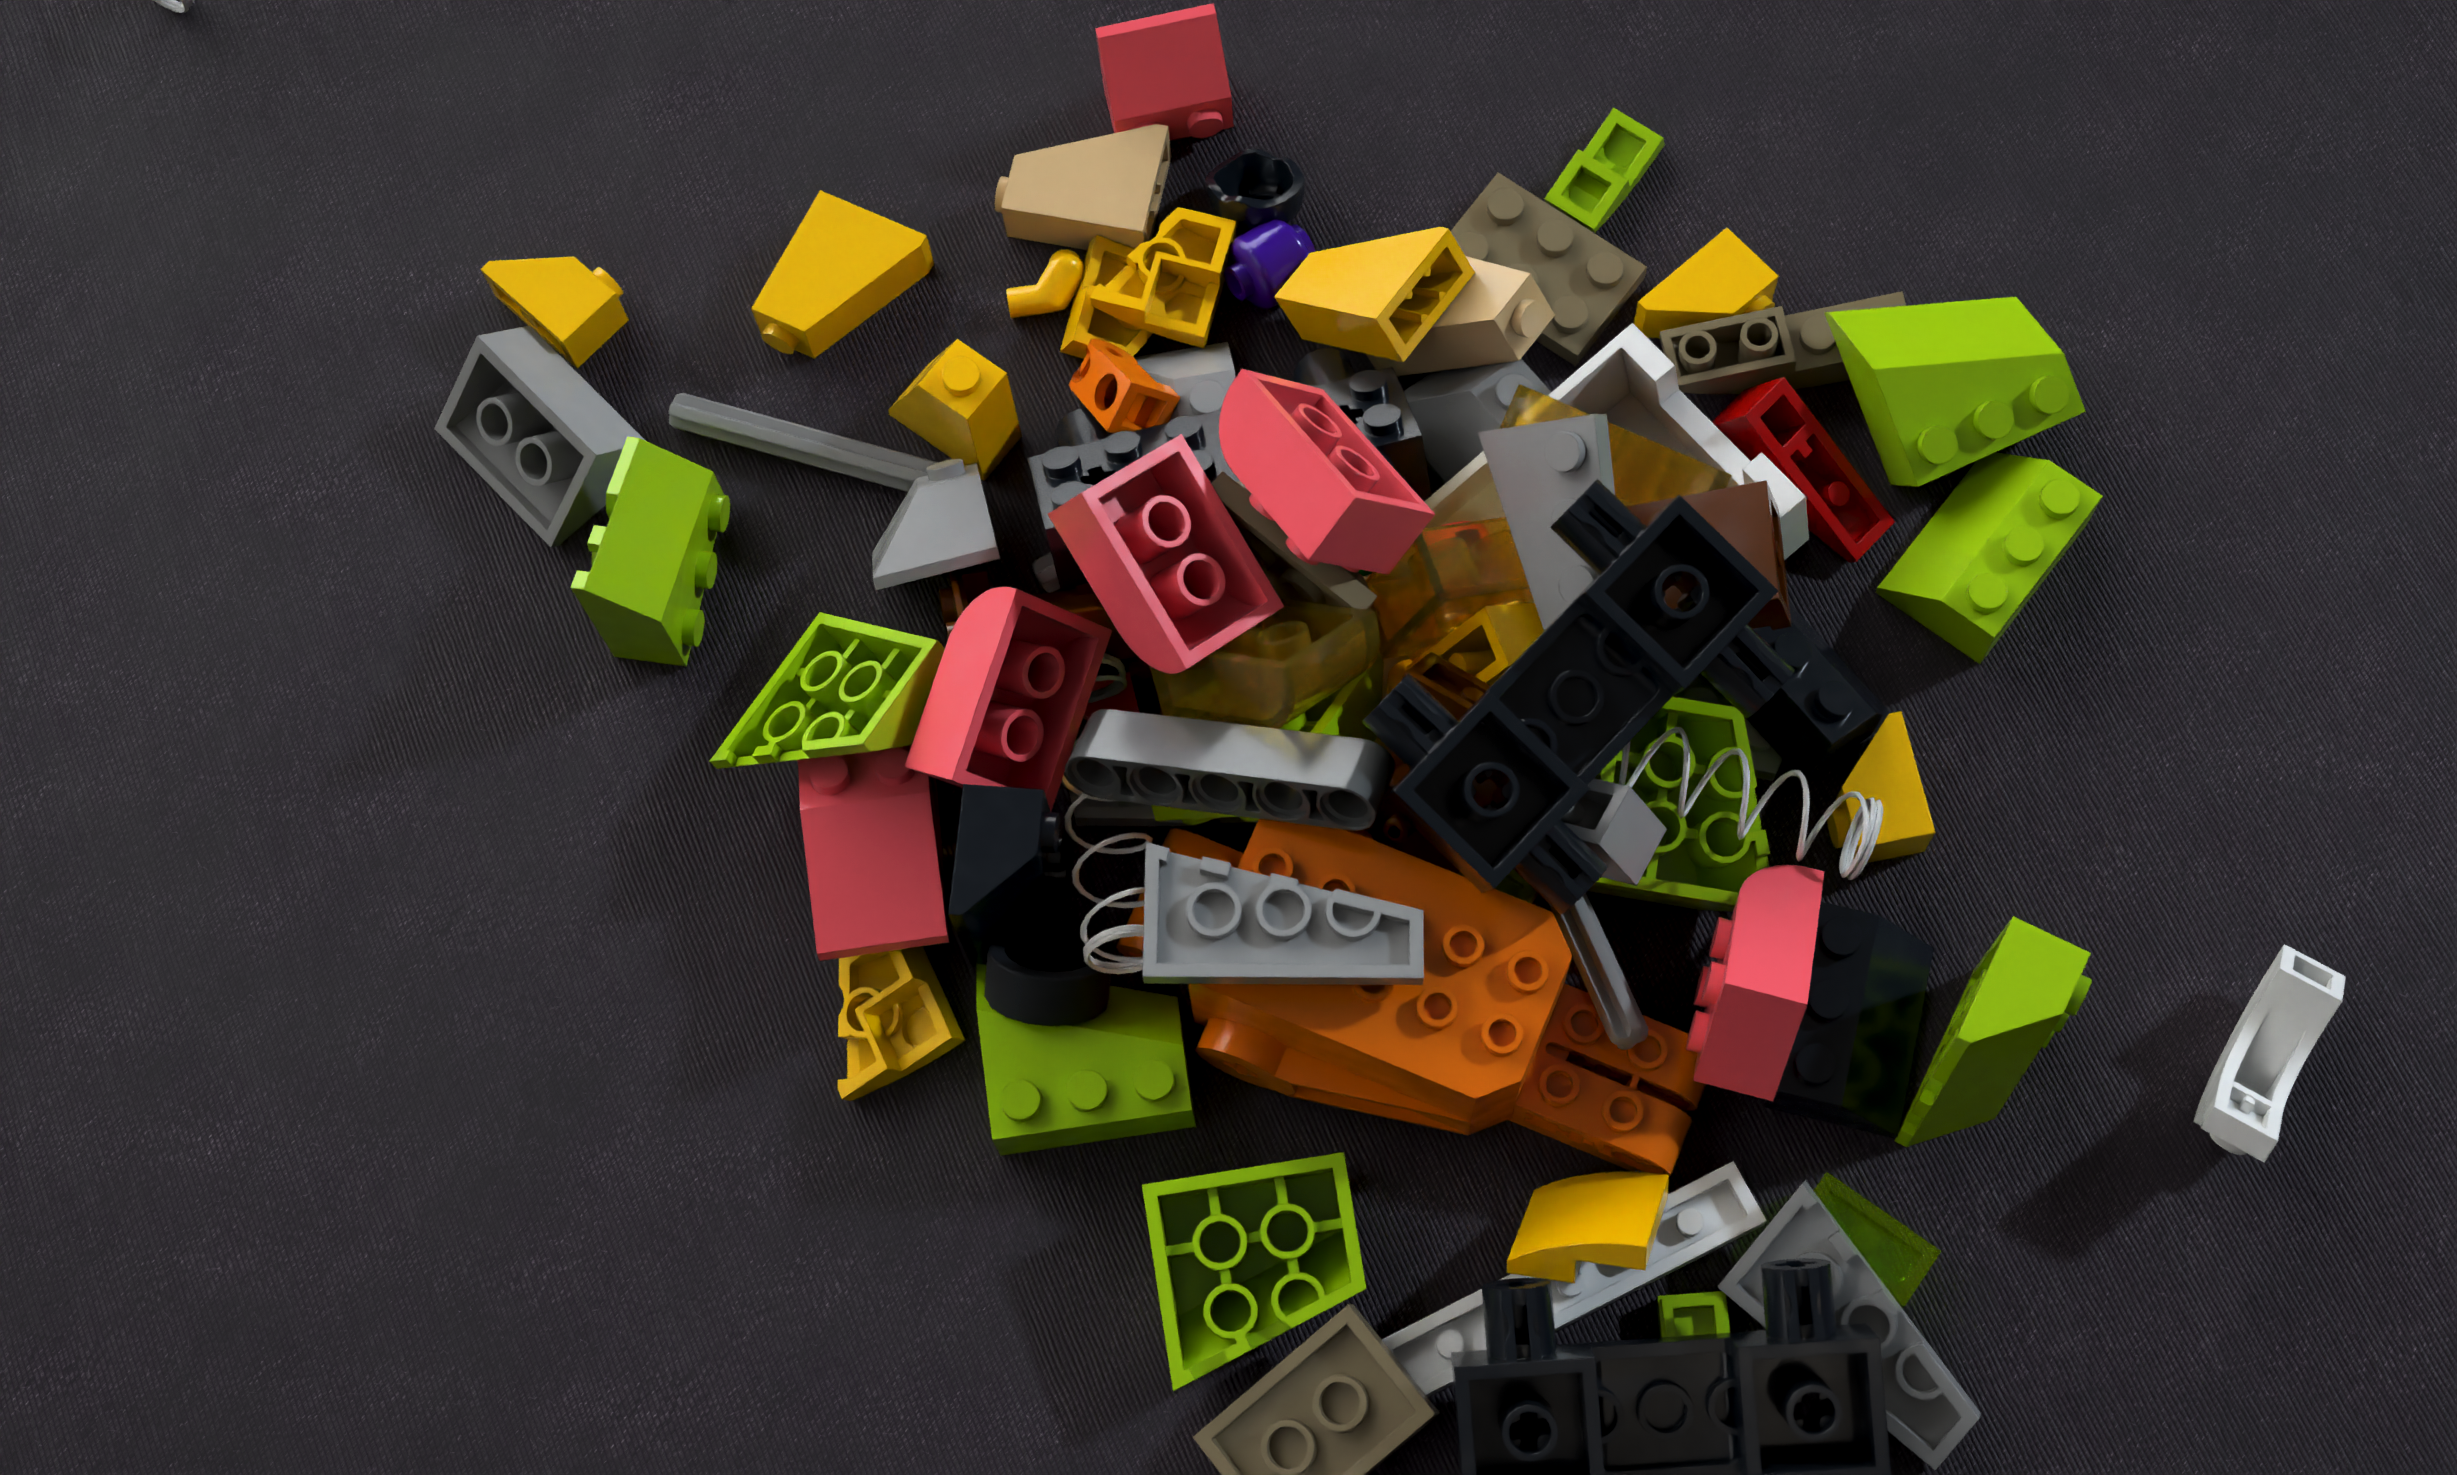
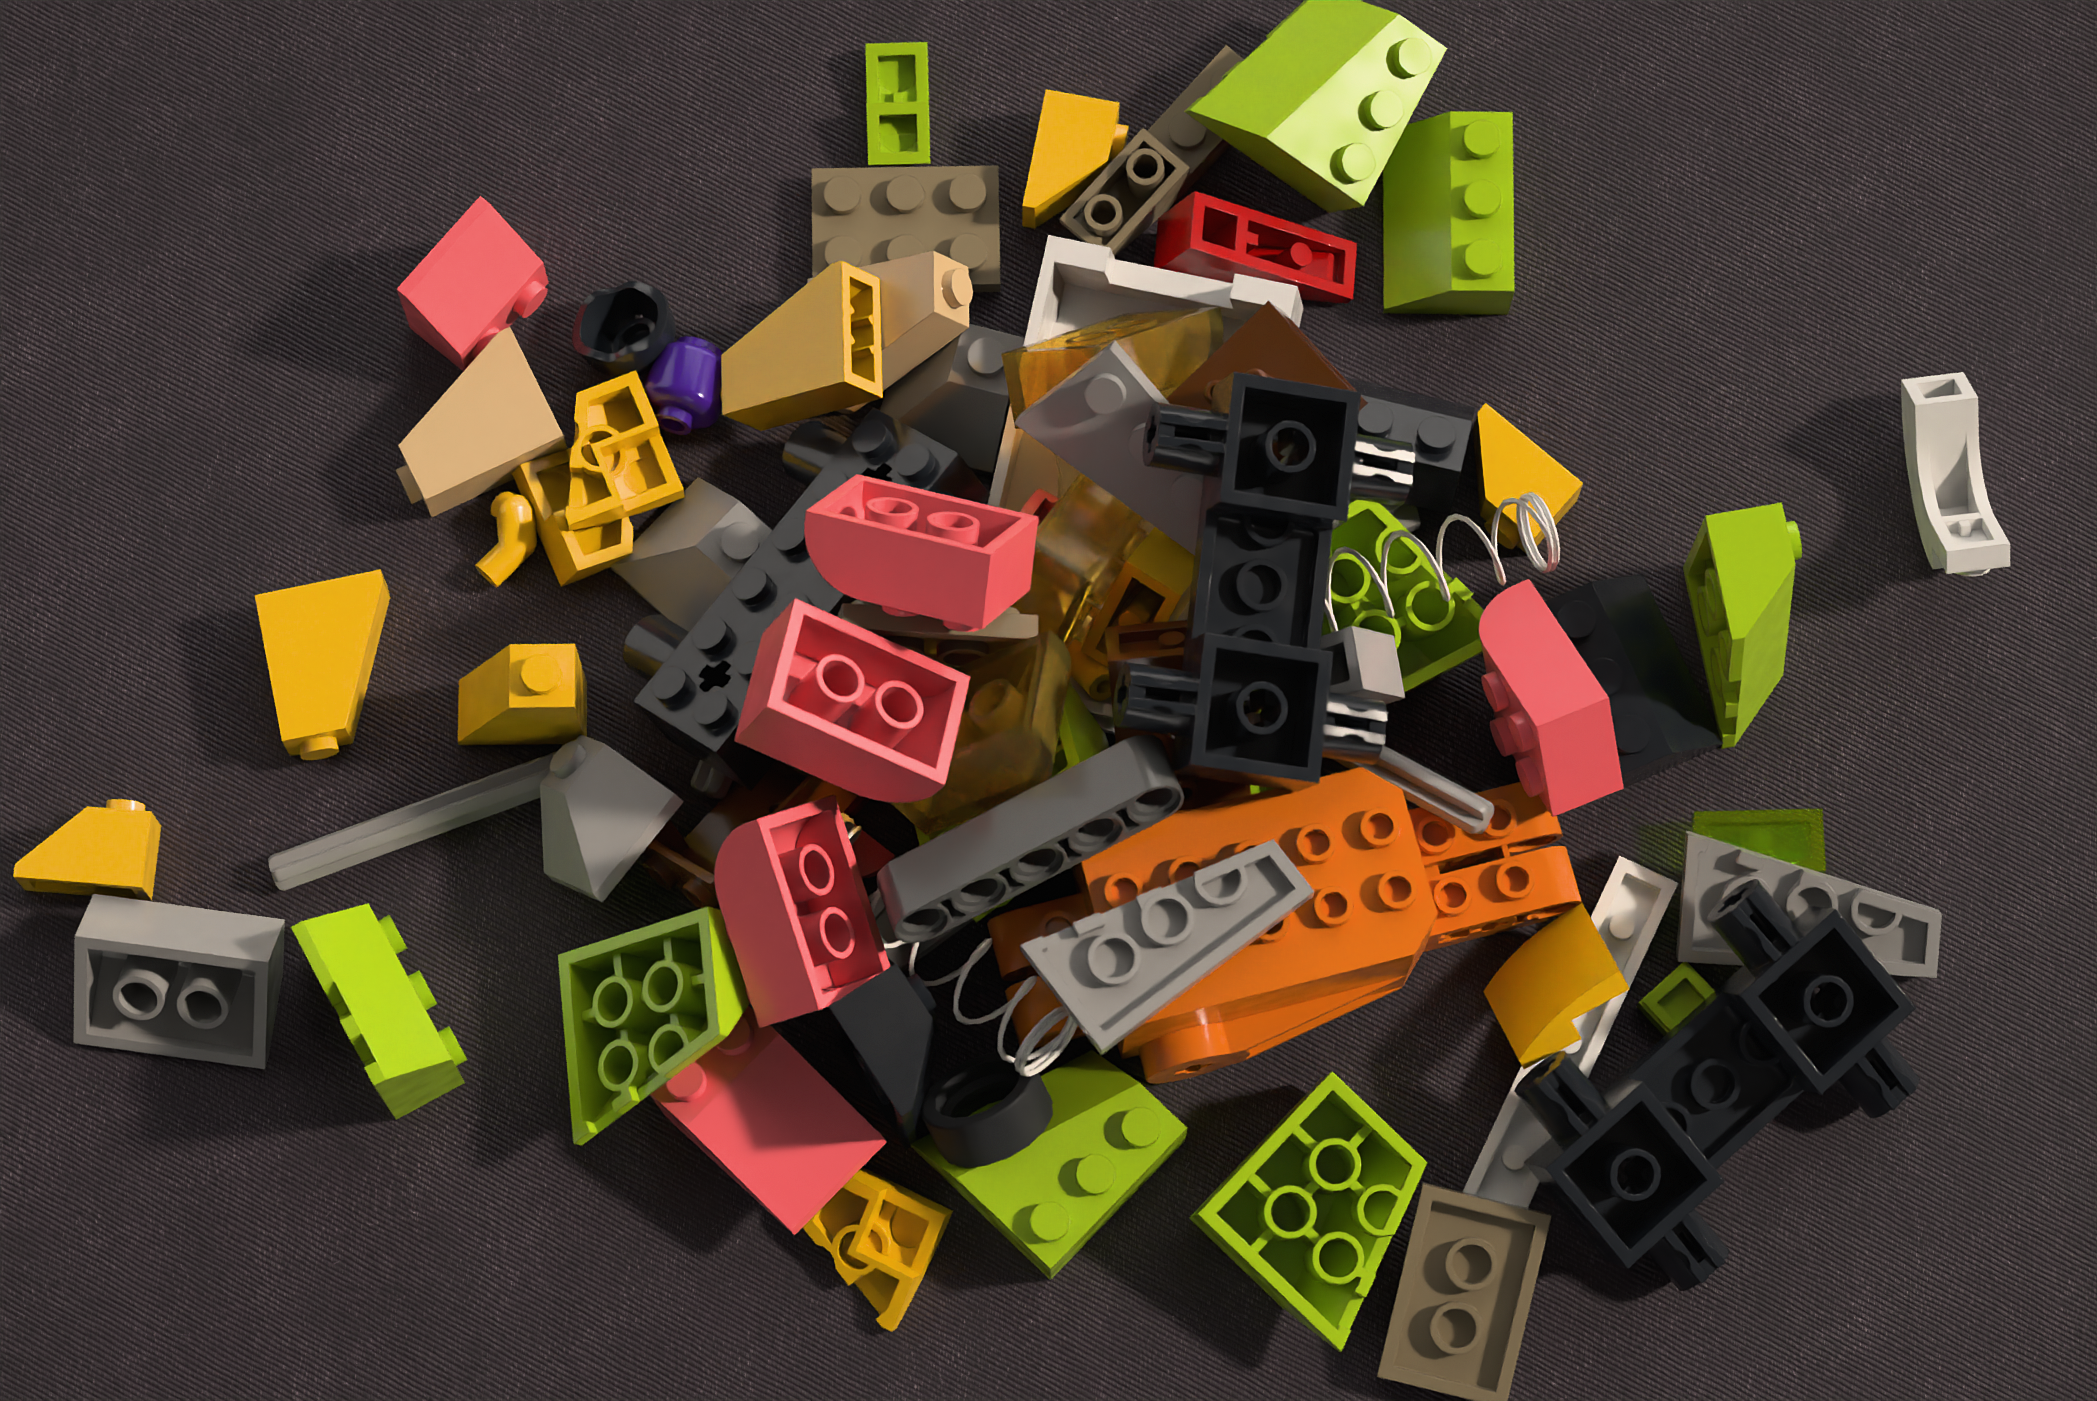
camera: 45 degrees left, 5 degrees up
(1120, 390) = (657, 586): orange leg -> none

